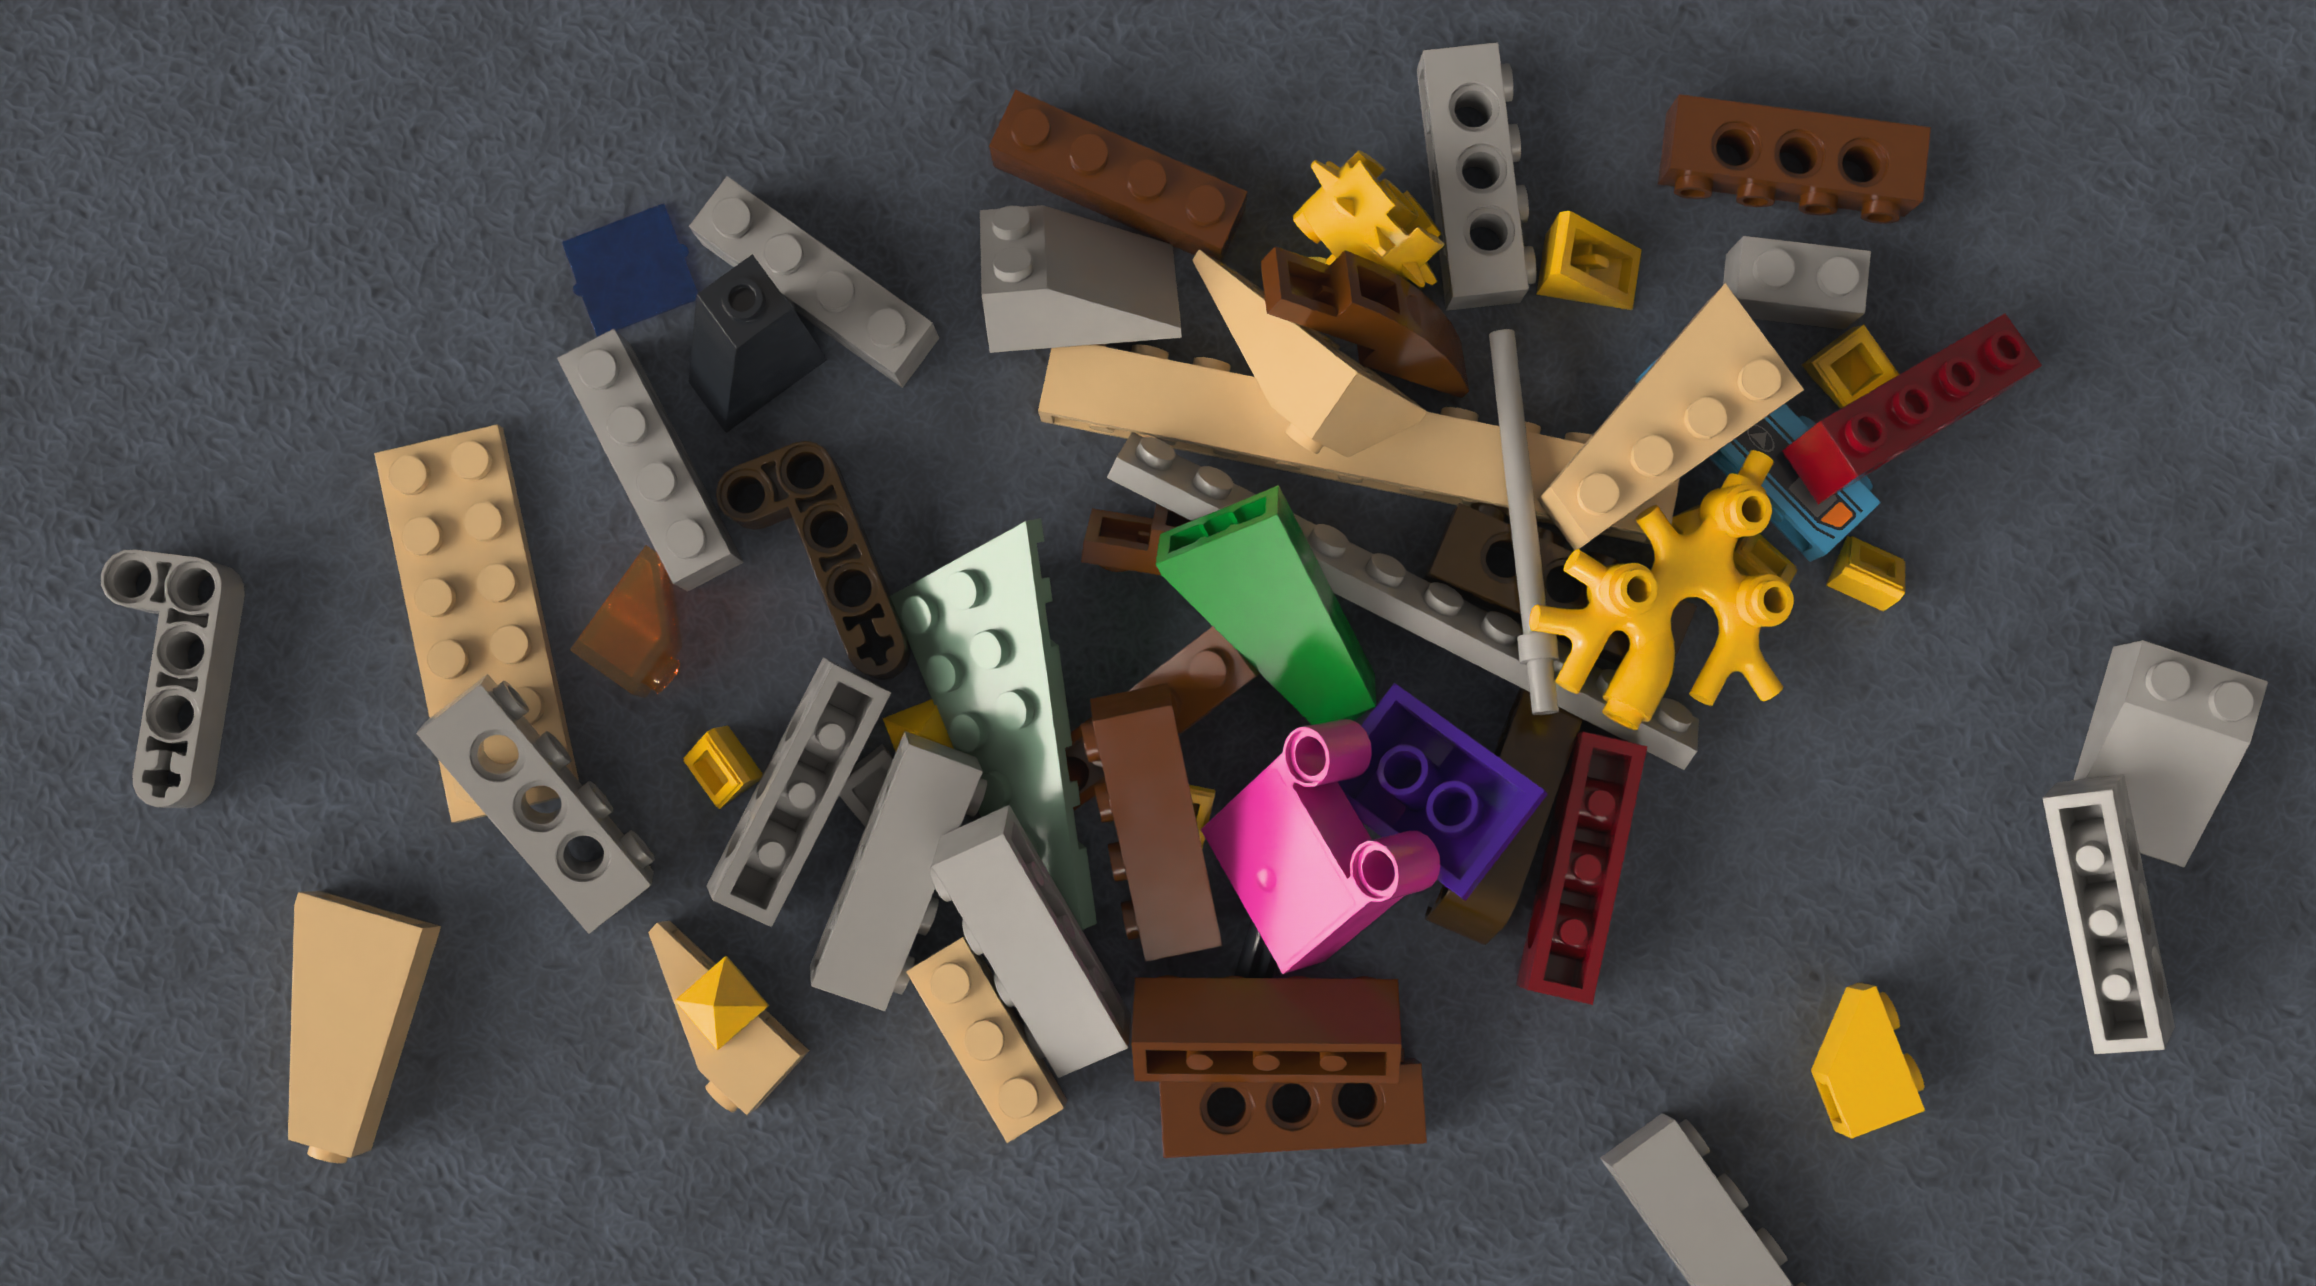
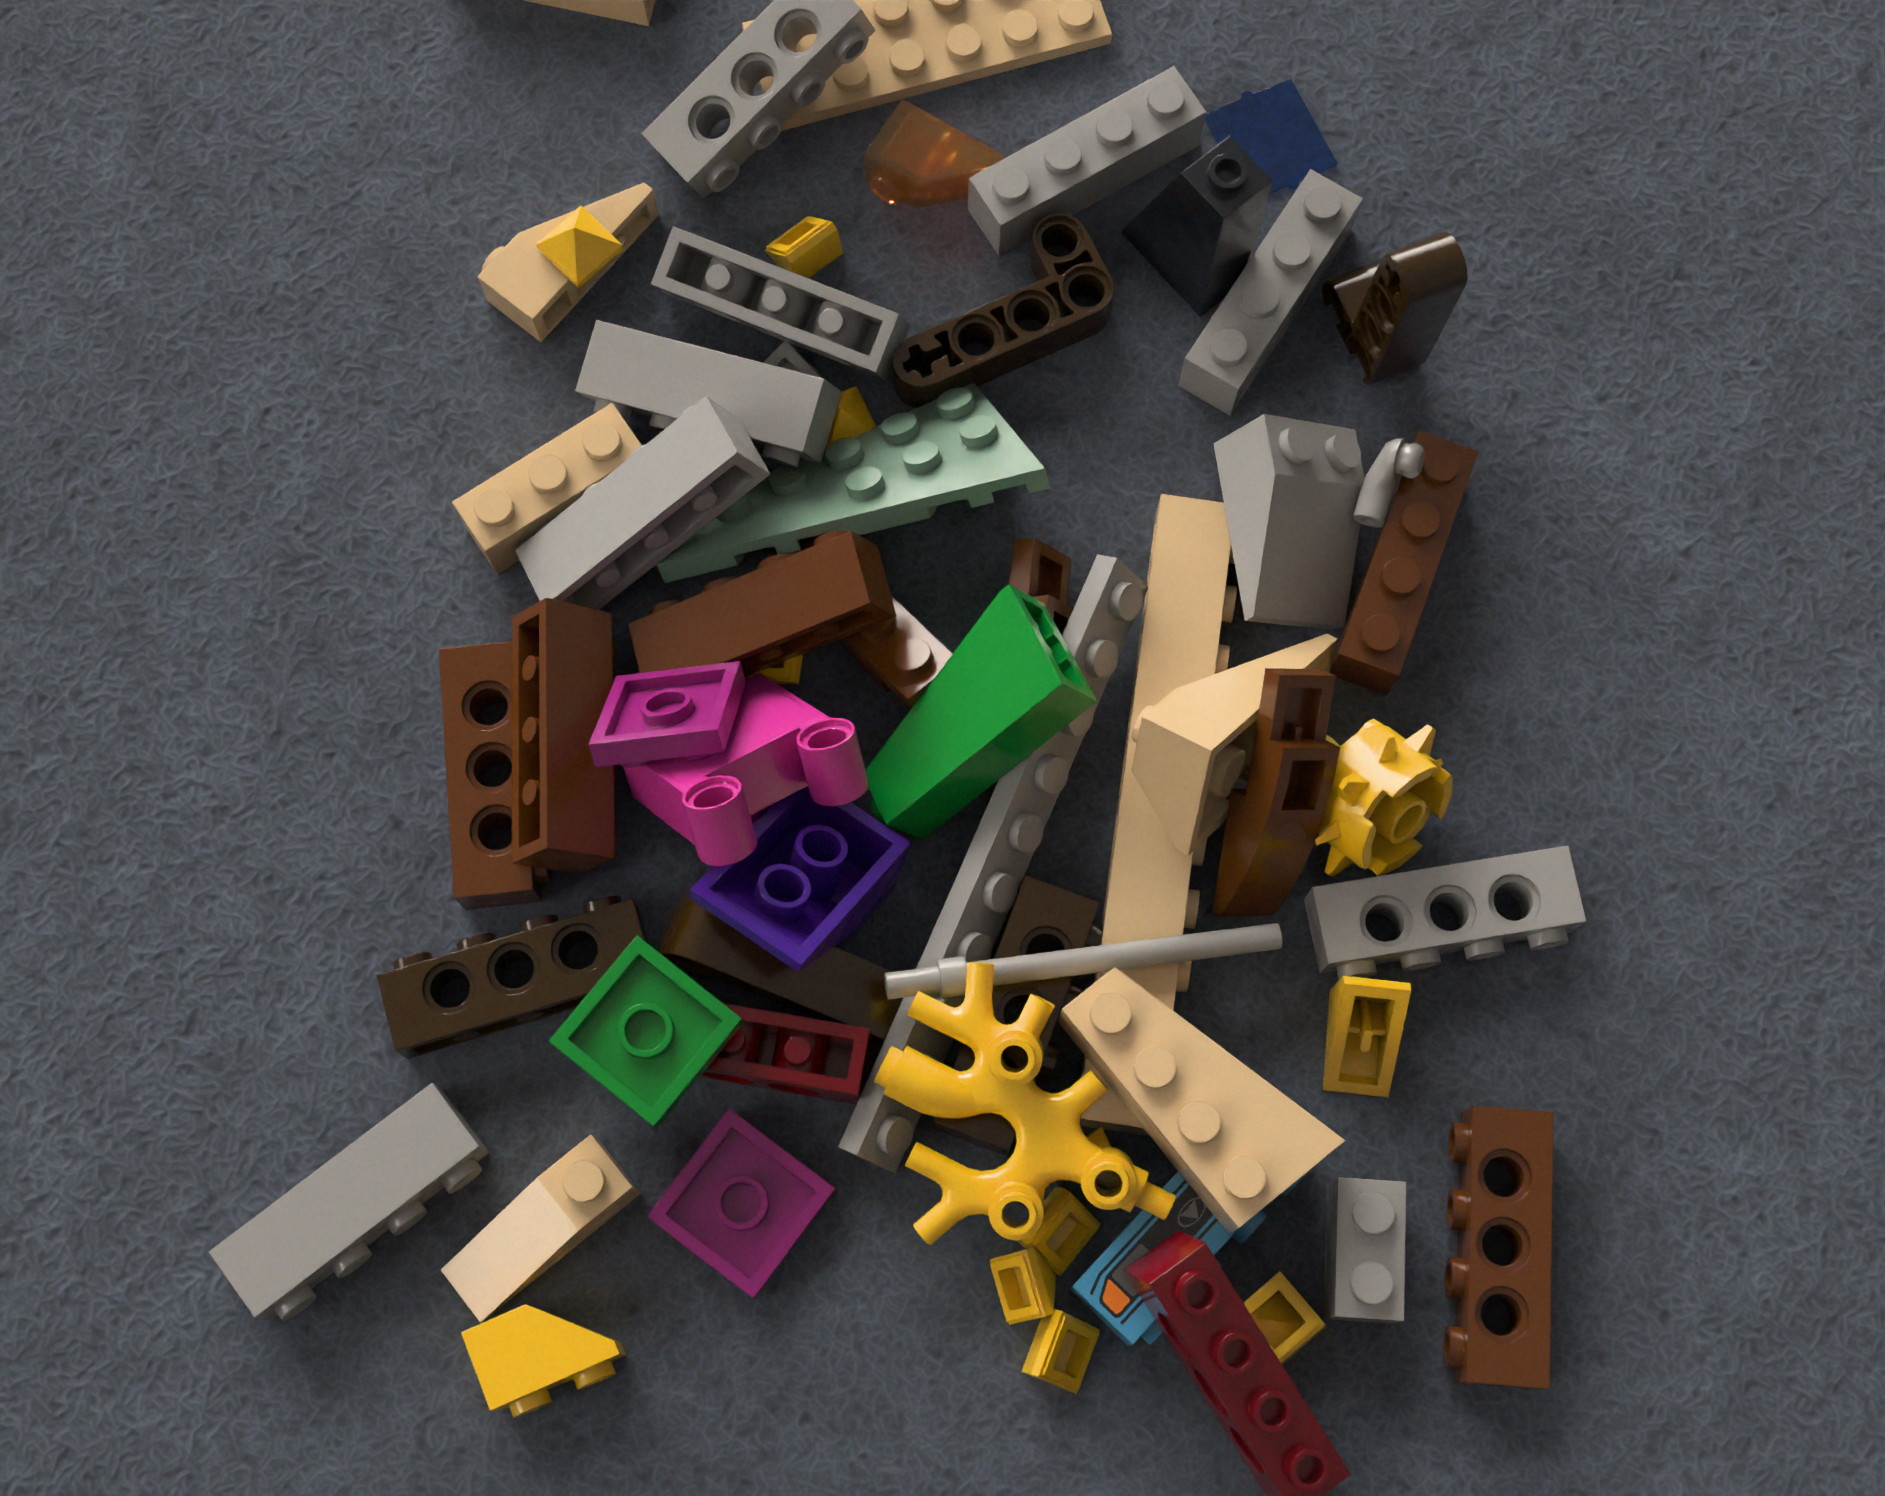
camera: 85 degrees right, 10 degrees down
(867, 165) = (1398, 304): none -> dark brown beam
(1040, 188) = (1380, 481): none -> light grey arm
(1265, 917) = (668, 715): none -> magenta plate
(1542, 1175) = (415, 985): none -> dark brown brick
(1588, 948) = (646, 1032): none -> green plate
(1726, 866) = (741, 1203): none -> magenta plate
(1742, 1059) = (540, 1227): none -> tan slope
(1817, 601) = (1024, 1285): none -> yellow slope

